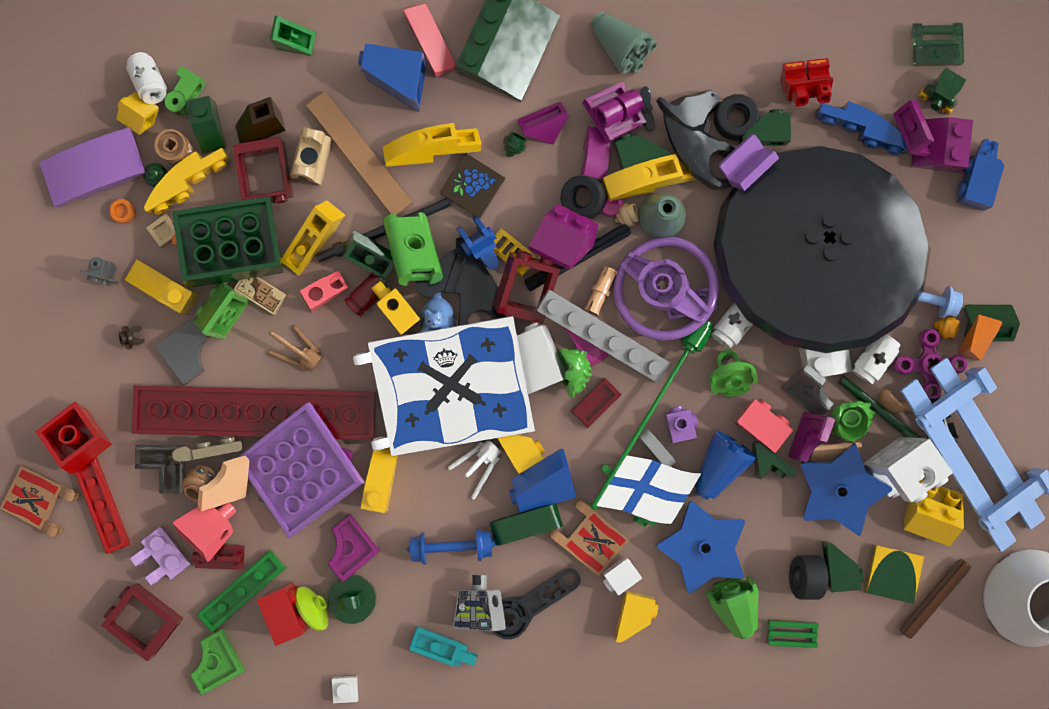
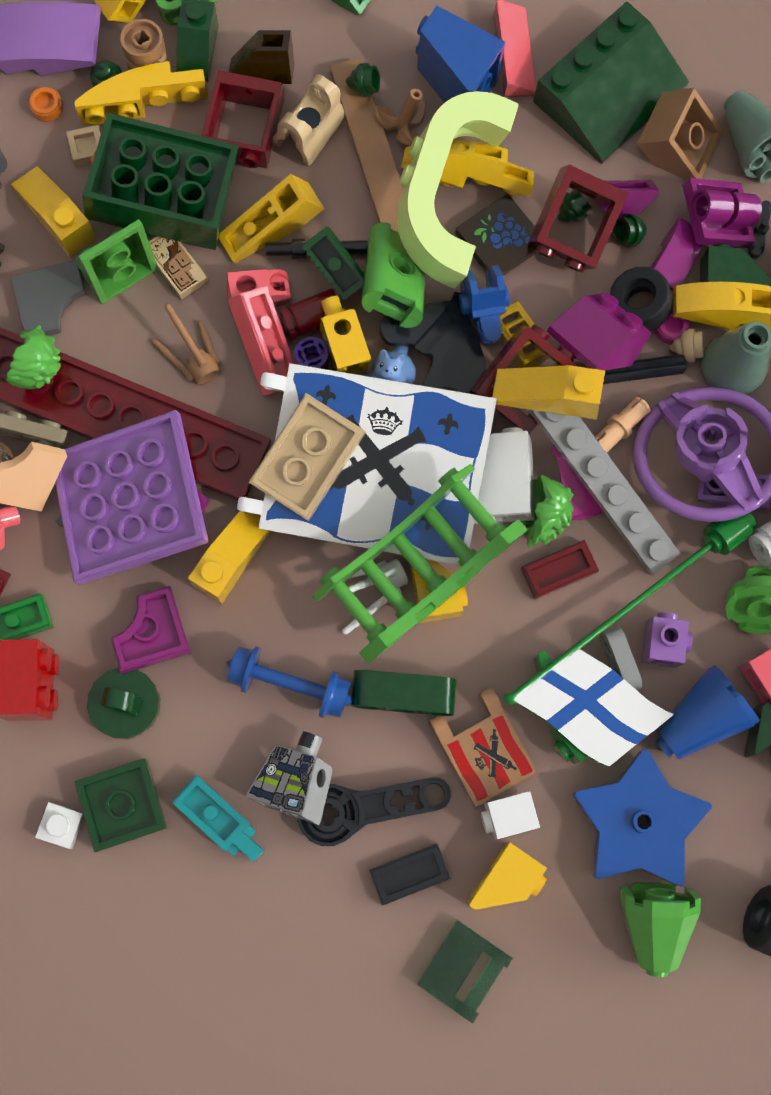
camera: 15 degrees right, 10 degrees down
(200, 405) = (34, 361): none -> bright green hair
(312, 608) = (63, 689): lime dish -> none
(335, 109) = (364, 80): none -> dark green plate
(342, 324) = (261, 334): none -> coral slope
(377, 118) = (410, 116): none -> medium nougat plant
(377, 663) = (120, 805): none -> dark green plate
(383, 326) = (314, 346): none -> dark purple wheel
(404, 400) = (307, 457): none -> tan tile
(423, 221) = (422, 235): none -> yellowish green arch
(522, 133) = (592, 187): none -> dark red window
(523, 453) = (439, 587): none -> bright green fence
(543, 483) = (451, 644): blue slope -> none
(545, 297) = (551, 389): none -> yellow slope
(558, 147) = (629, 230): none -> dark green plate
(568, 62) = (681, 134): none -> medium nougat slope
(572, 634) = (409, 874): none -> black tile
(620, 677) = (453, 964): none -> clear green plate
(790, 643) = (753, 1012): green tile -> none

